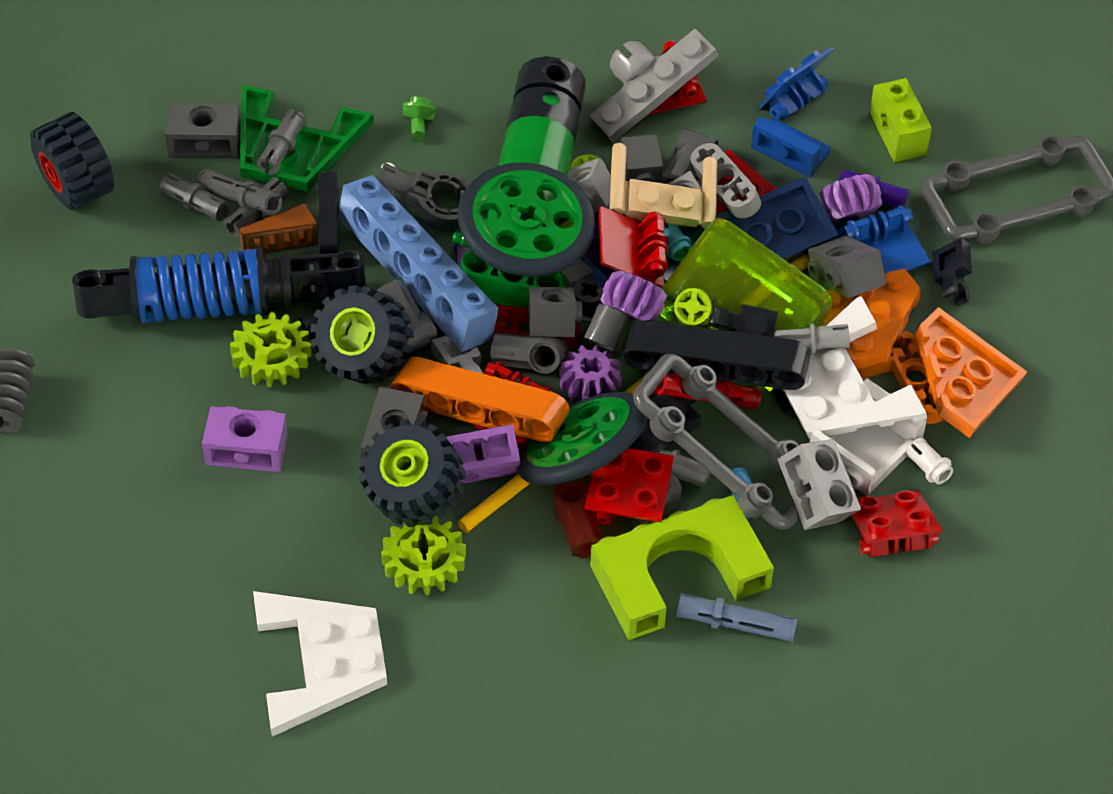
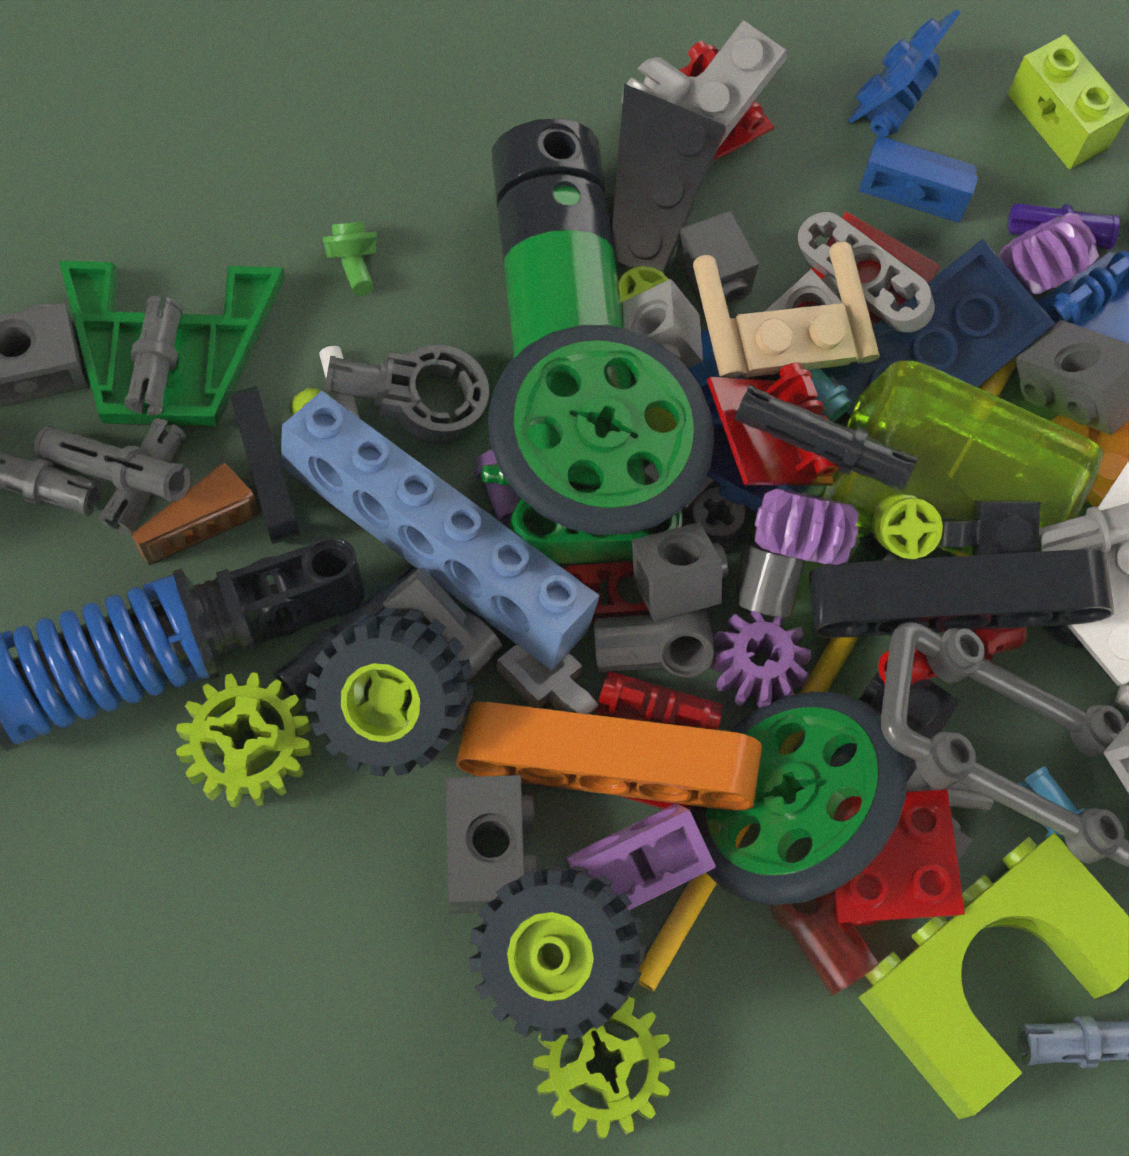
camera: 20 degrees left, 15 degrees up
(261, 450) = (286, 935): medium lavender brick -> none
(617, 106) = (658, 176): none -> black wing
(666, 255) = (827, 439): none -> black pin
(681, 162) = (779, 251): dark grey piece -> none

